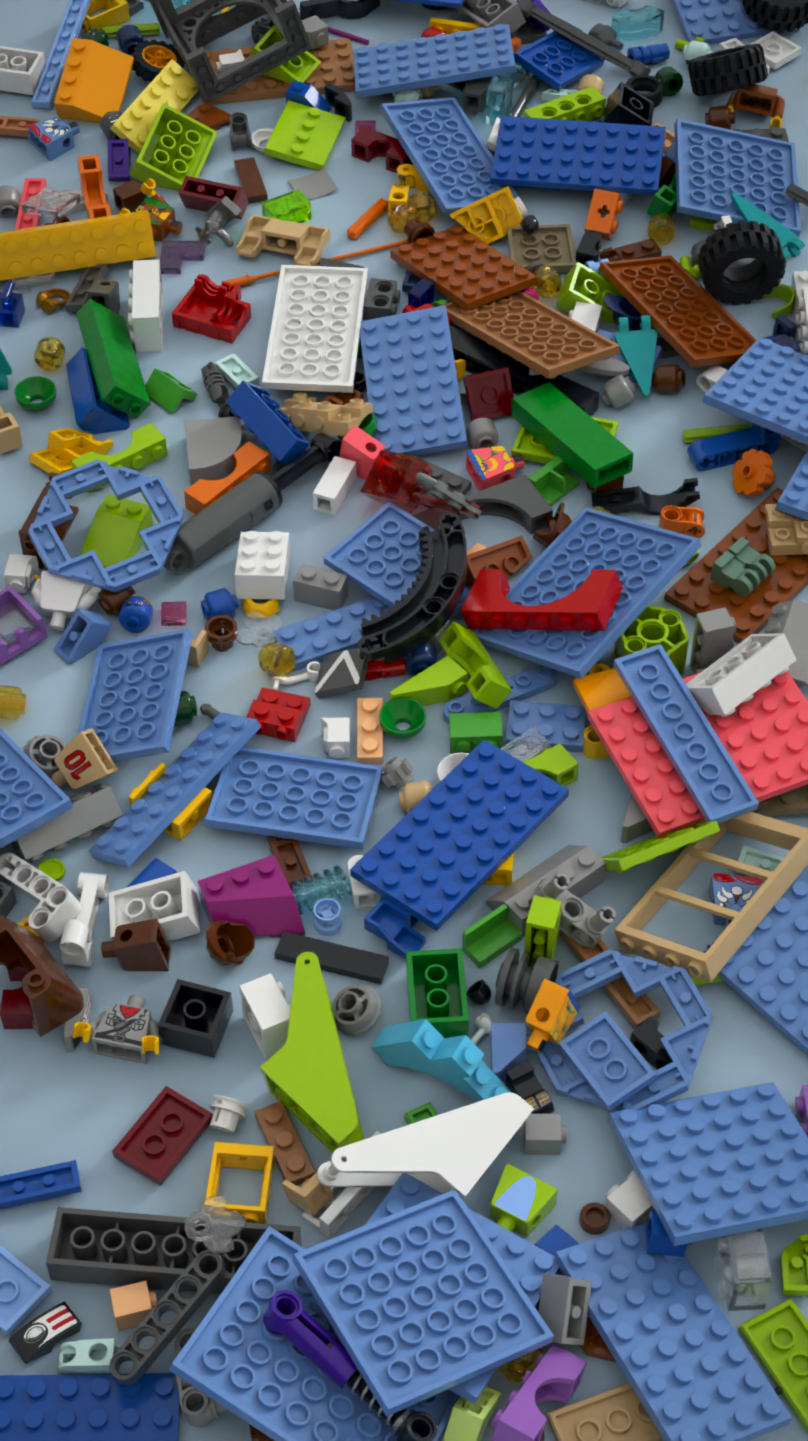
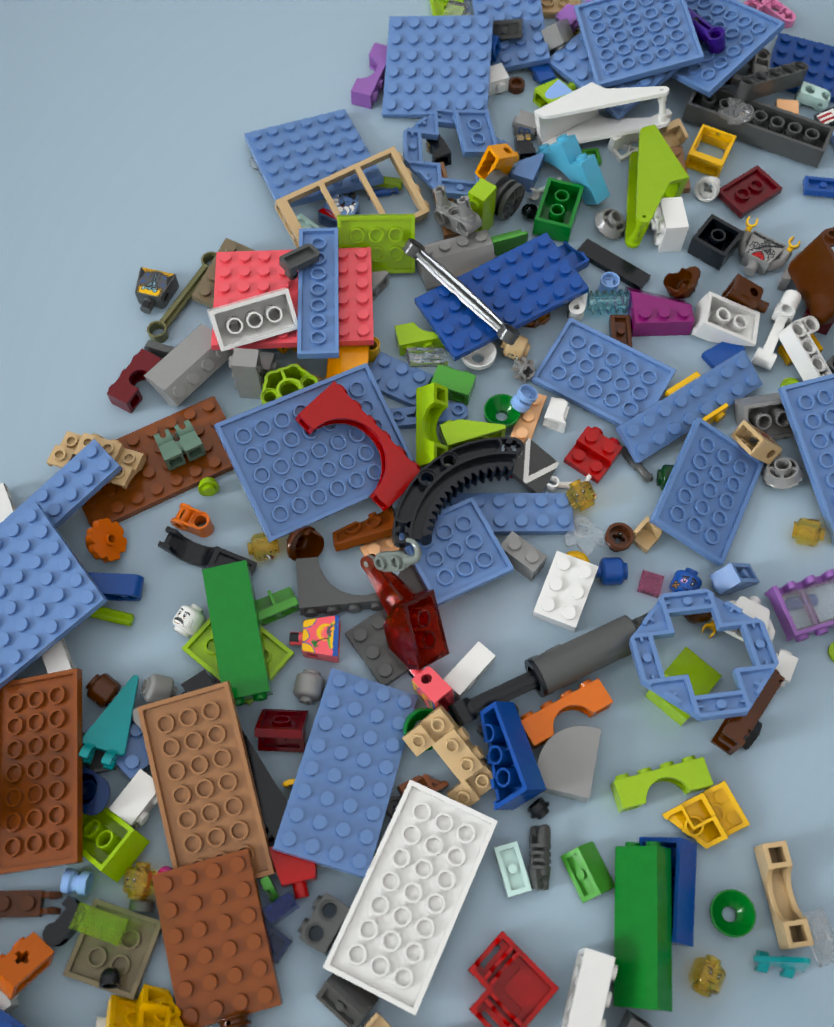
camera: 160 degrees left, 15 degrees up
(380, 716) = (524, 398): none -> light blue wheel
(513, 800) = (504, 330): none -> piece
(557, 241) = (100, 924): none -> clear neon green brick
(631, 439) = (188, 620): none -> white head
(656, 1280) = (508, 28): none -> dark grey panel
(728, 750) = (298, 259): none -> dark grey piece

